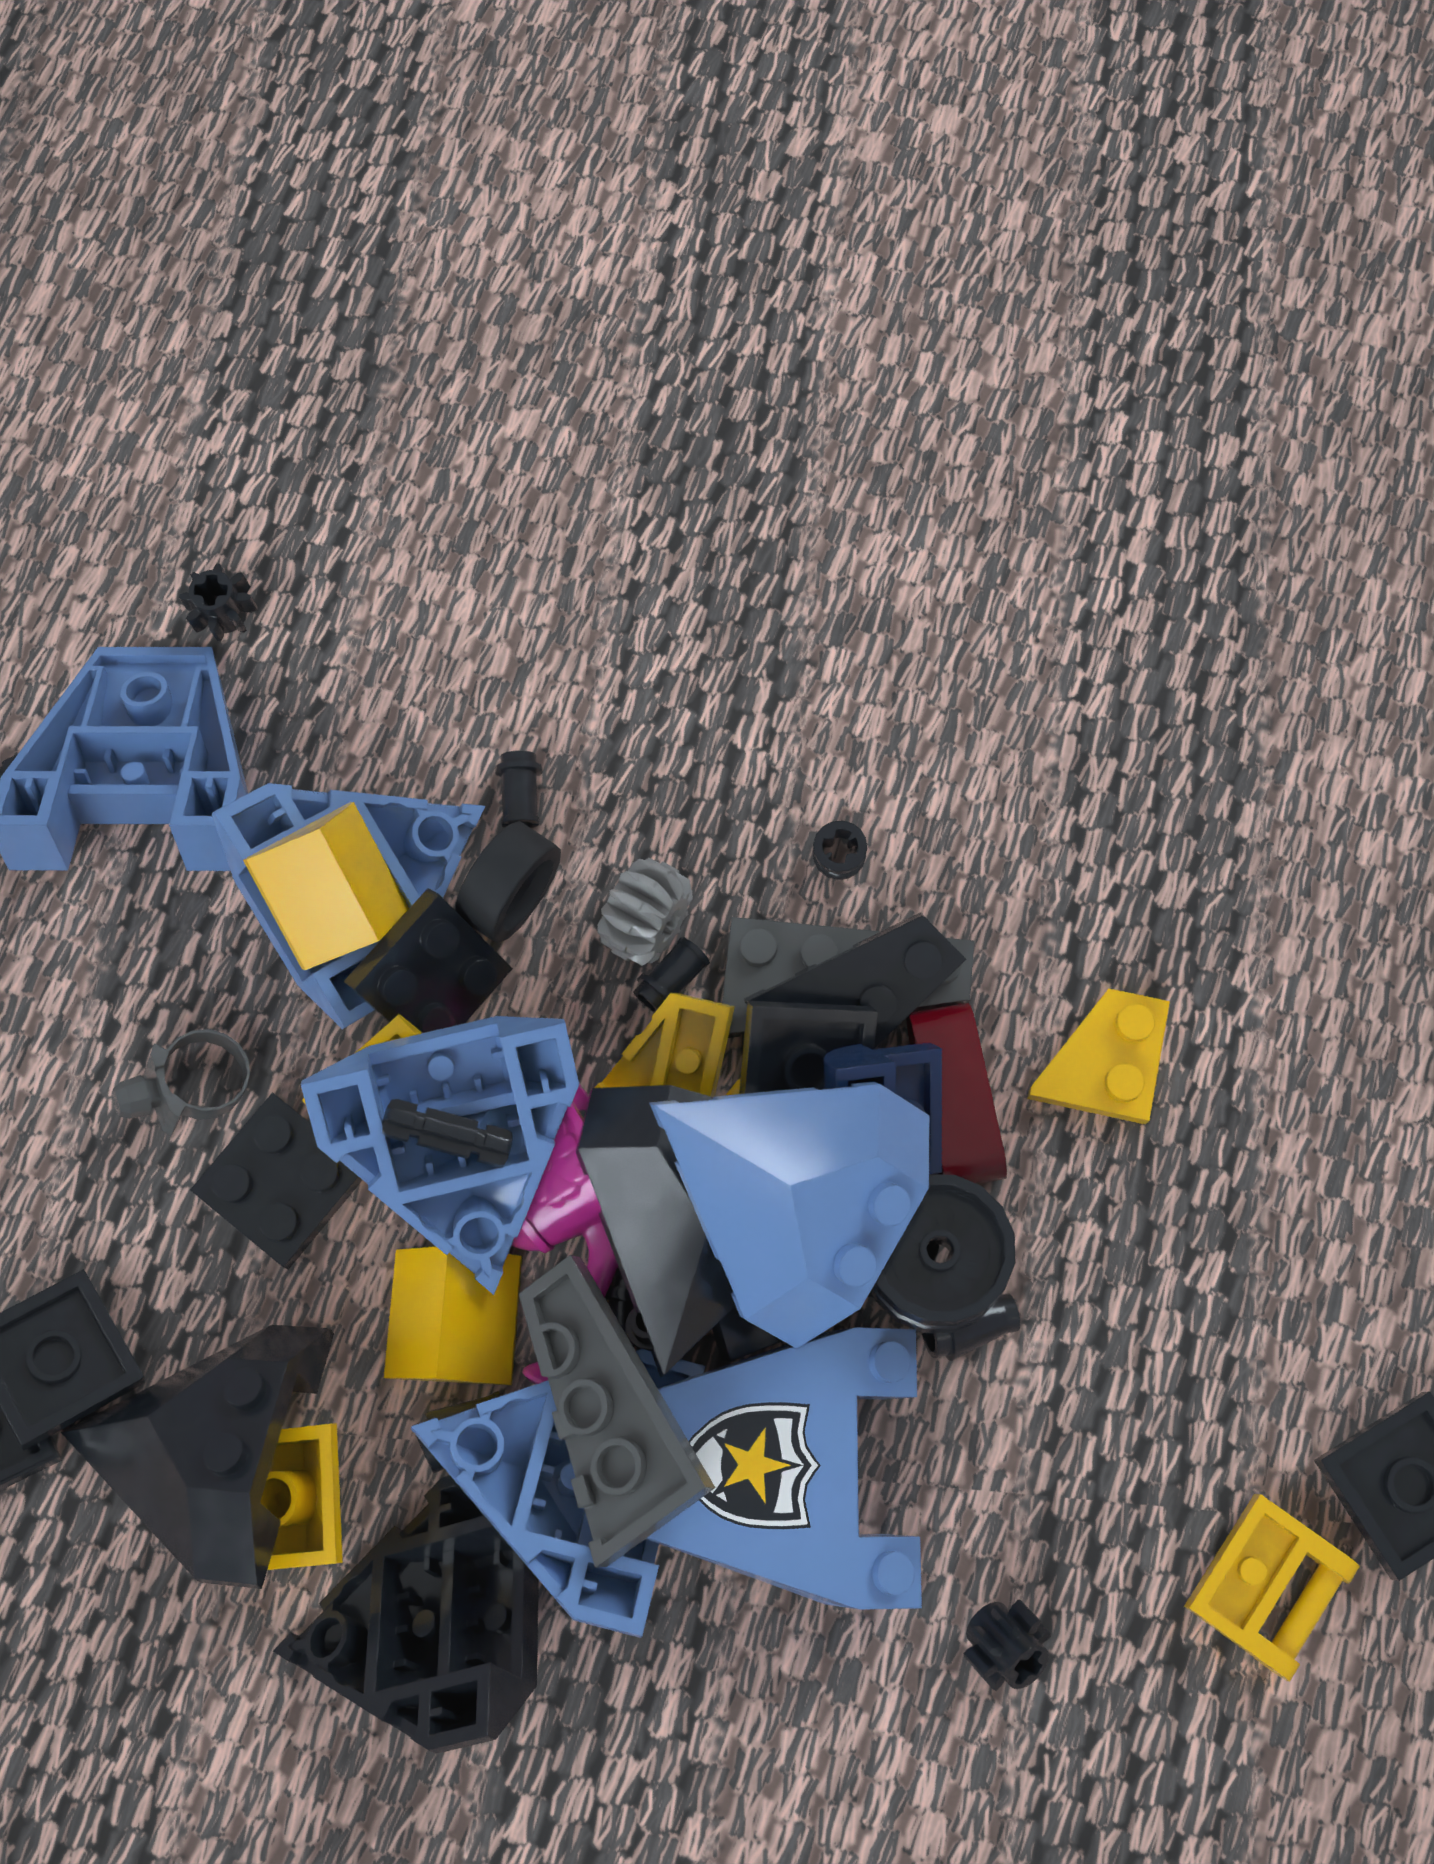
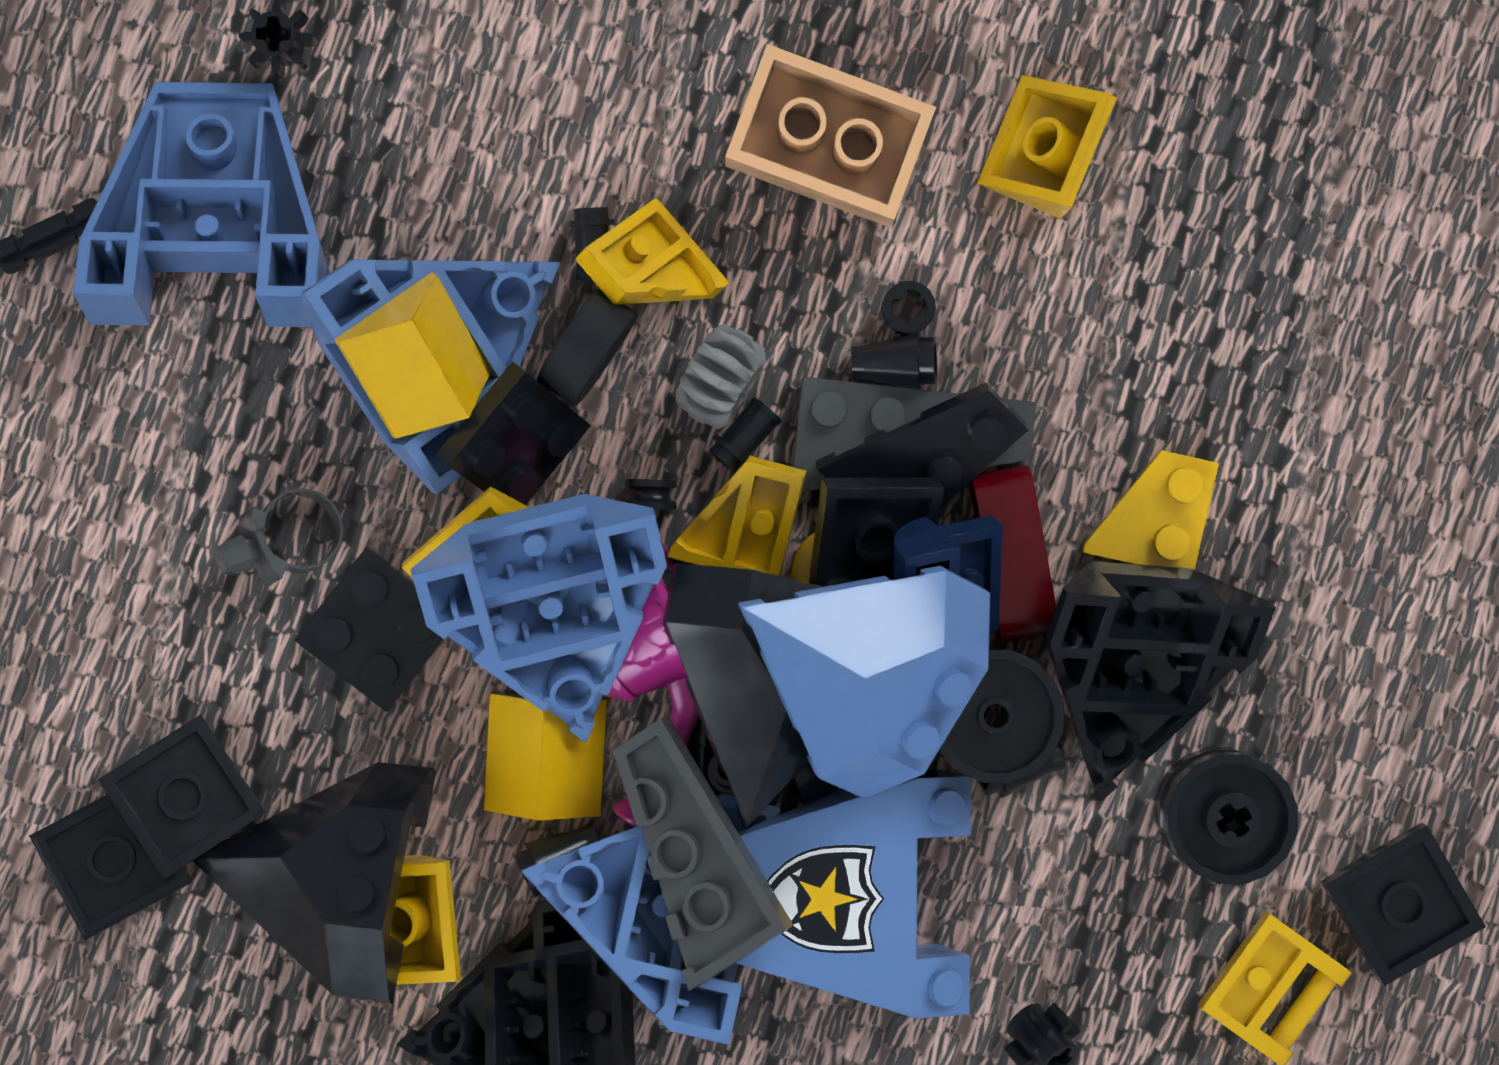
camera: 10 degrees left, 15 degrees up
(447, 1133) = (544, 609): black axle -> none
(575, 800) = (650, 261): none -> yellow wing
(580, 1033) = (652, 493): none -> black bush
(755, 679) = (829, 136): none -> light nougat brick
(829, 901) = (898, 361): none -> black cone
(975, 690) = (1046, 143): none -> yellow slope
(1101, 1202) = (1143, 652): none -> black wedge
(1241, 1372) = (1260, 821): none -> black wheel

